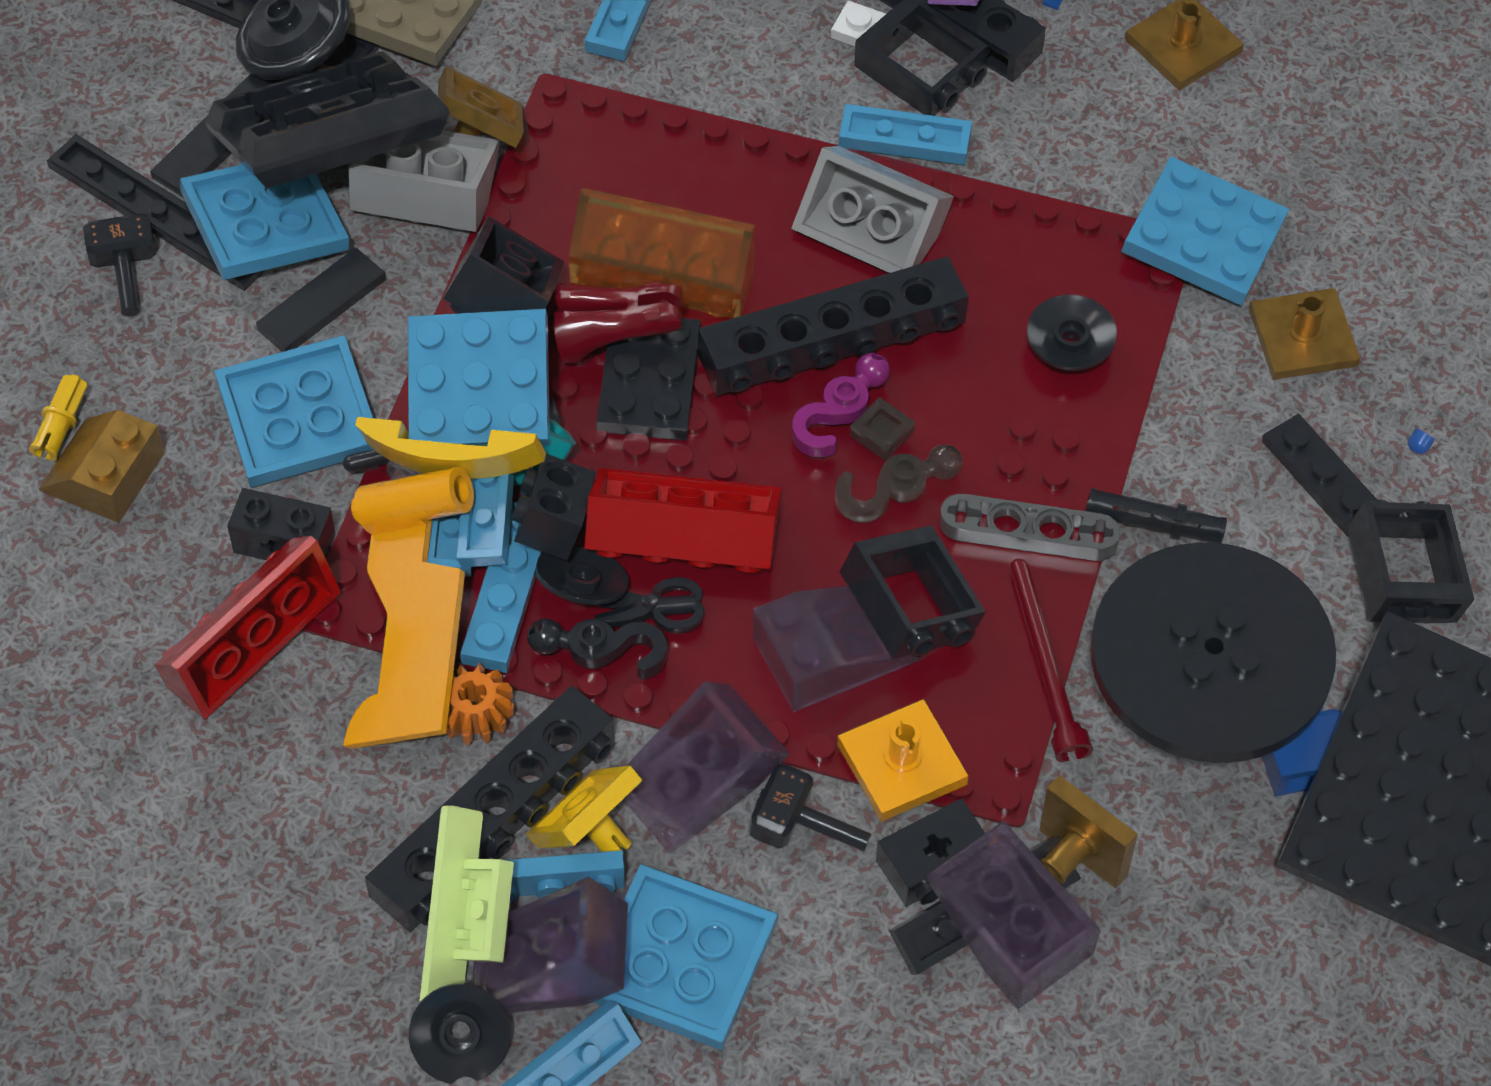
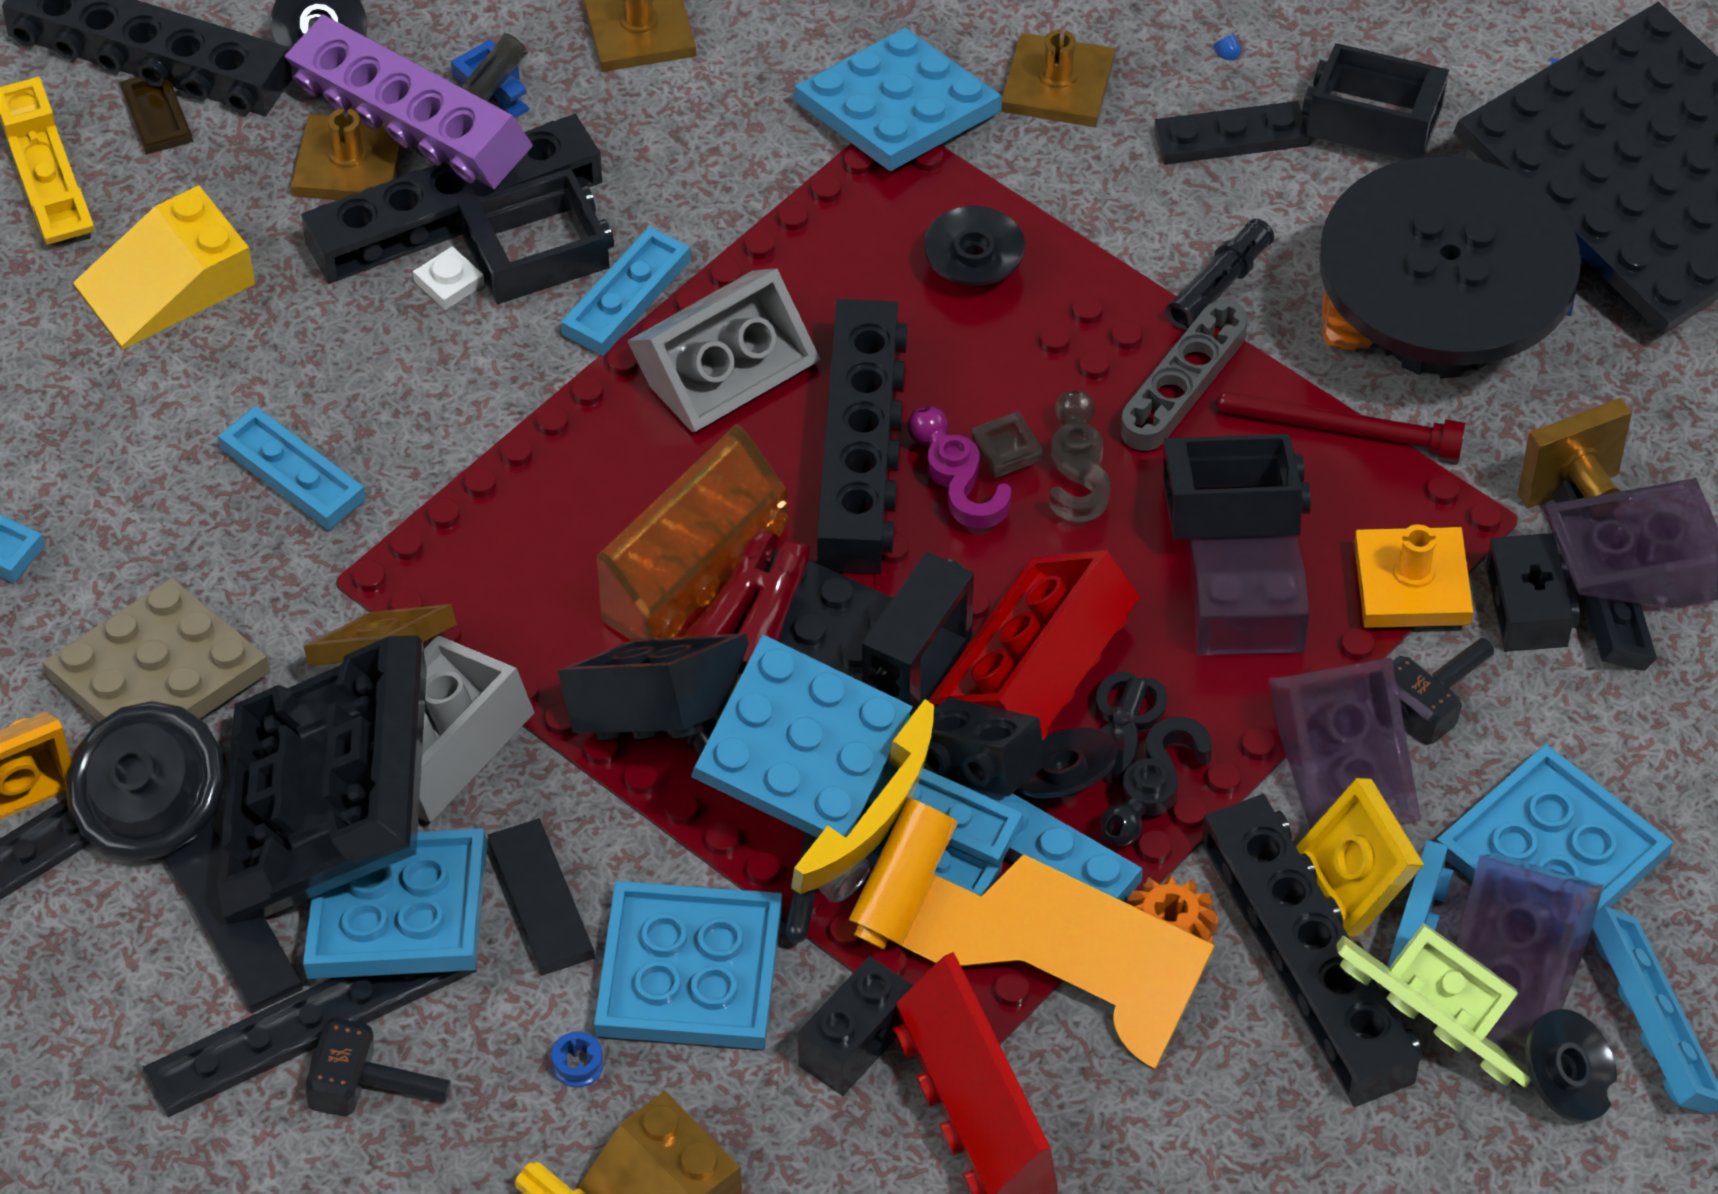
camera: 65 degrees left, 5 degrees down
(197, 385) = (572, 1043): none -> blue bush
(637, 408) = (920, 631): none -> black window

